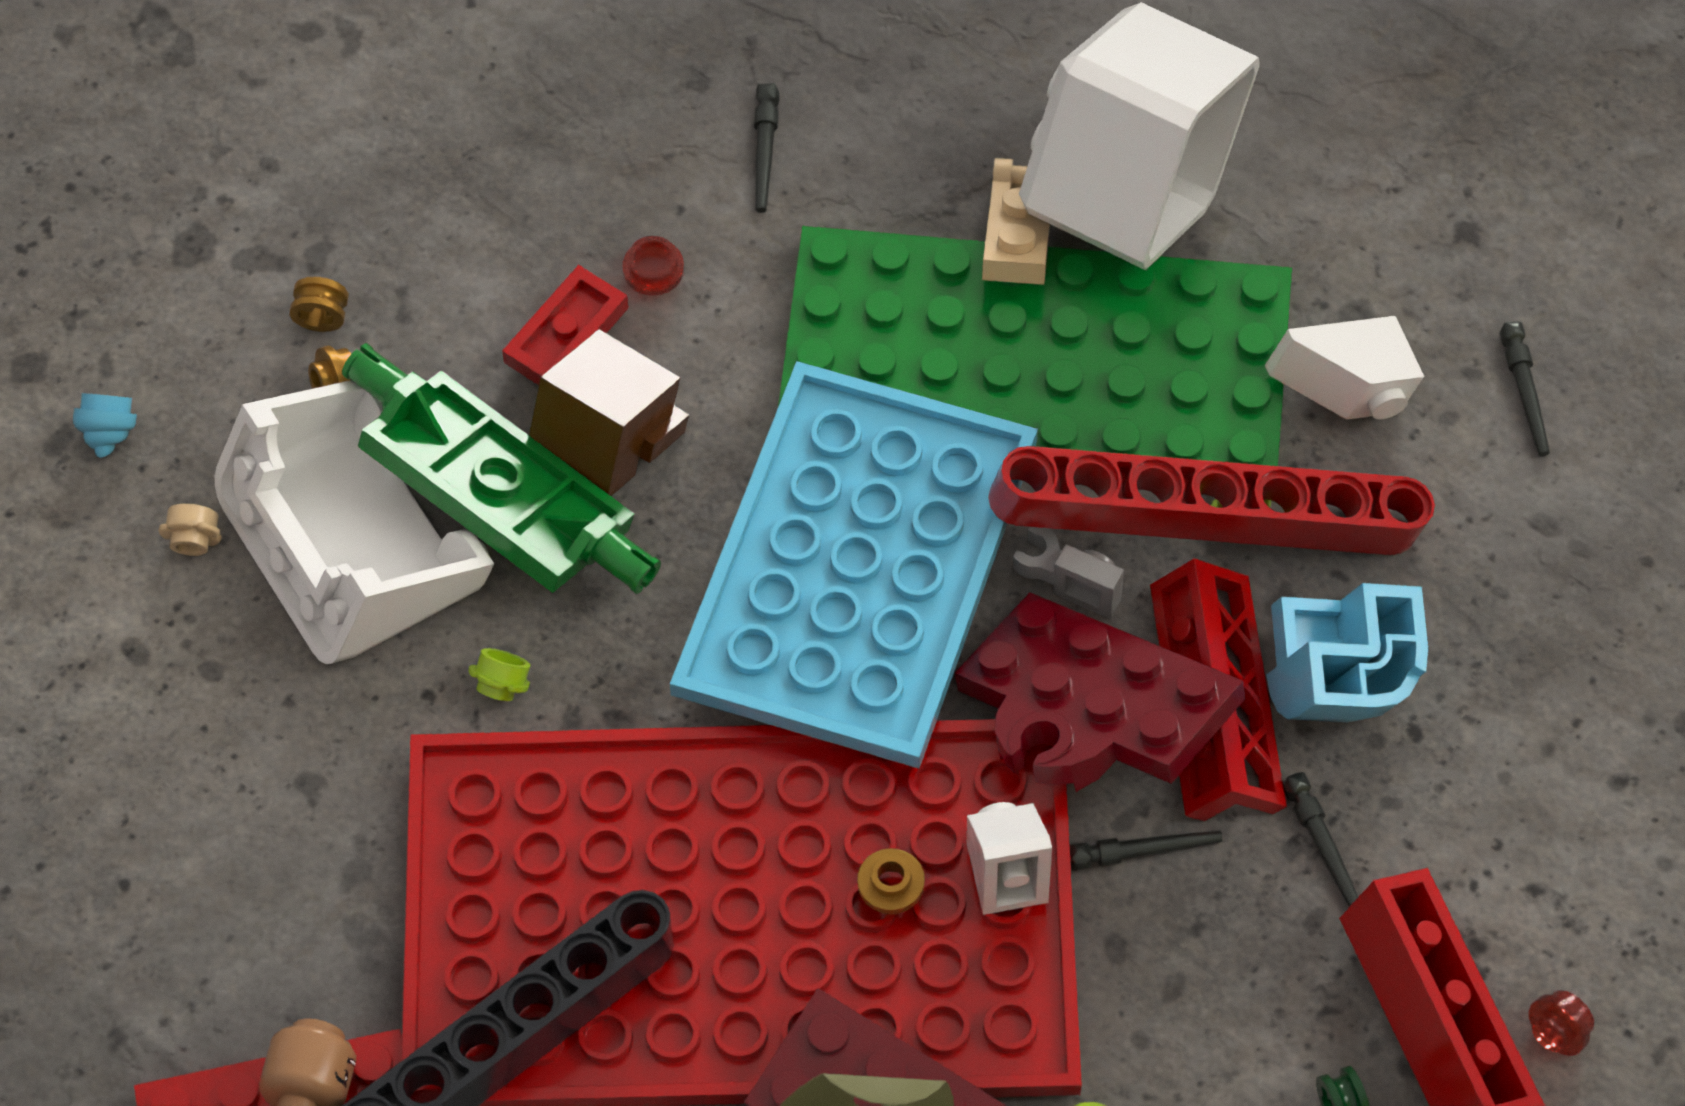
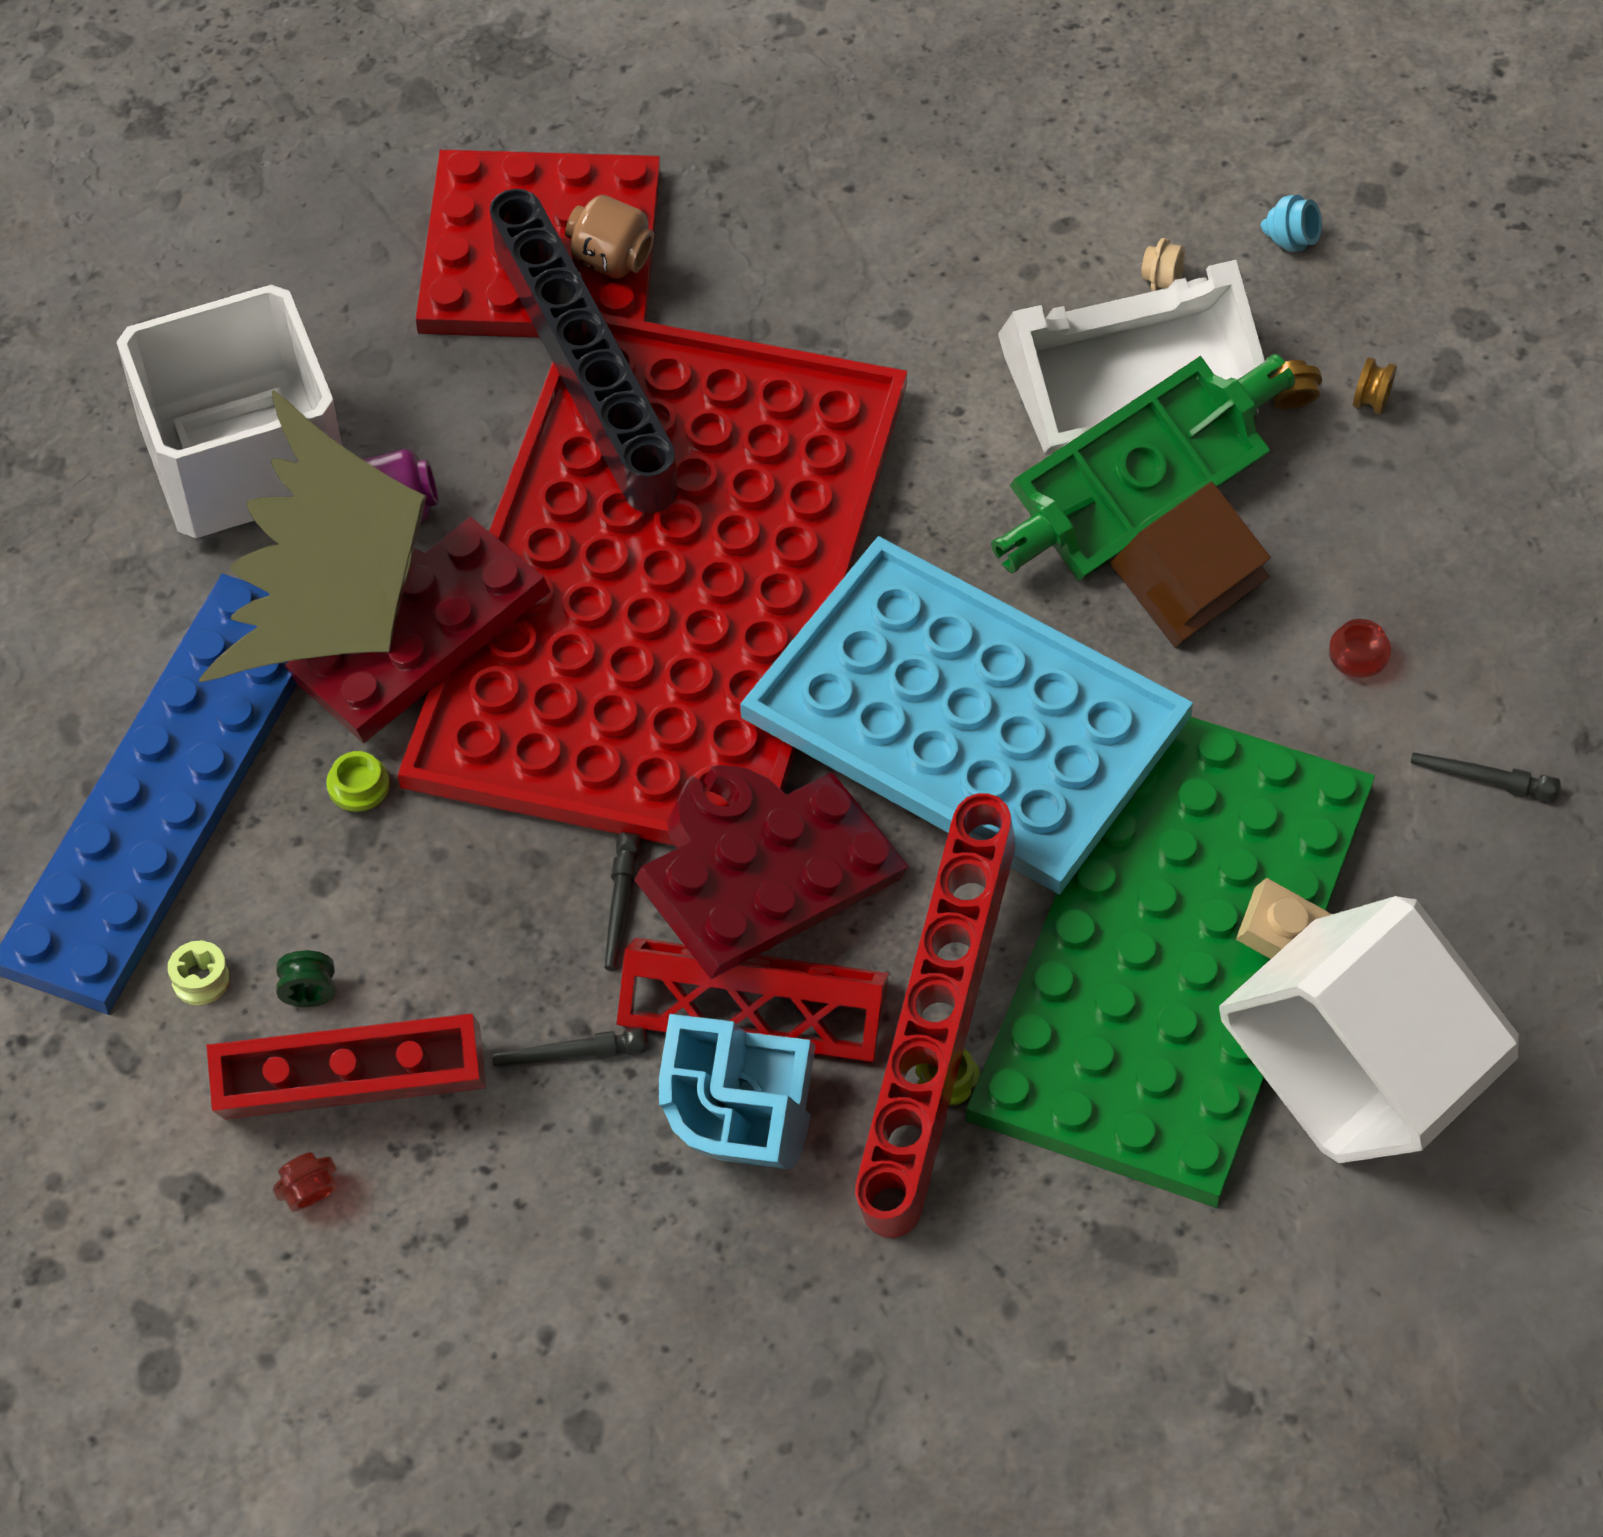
camera: 105 degrees right, 5 degrees down
(500, 674) = (951, 448): lime plate -> none
(564, 322) = (1307, 565): red plate -> none
(891, 898) = (638, 680): pearl gold plate -> none
(1009, 856) = (615, 739): white slope -> none
(1077, 575) = (904, 907): light grey plate -> none
(1349, 366) = (1070, 1203): white slope -> none
(1520, 362) = (1055, 1392): pearl dark grey piece -> none

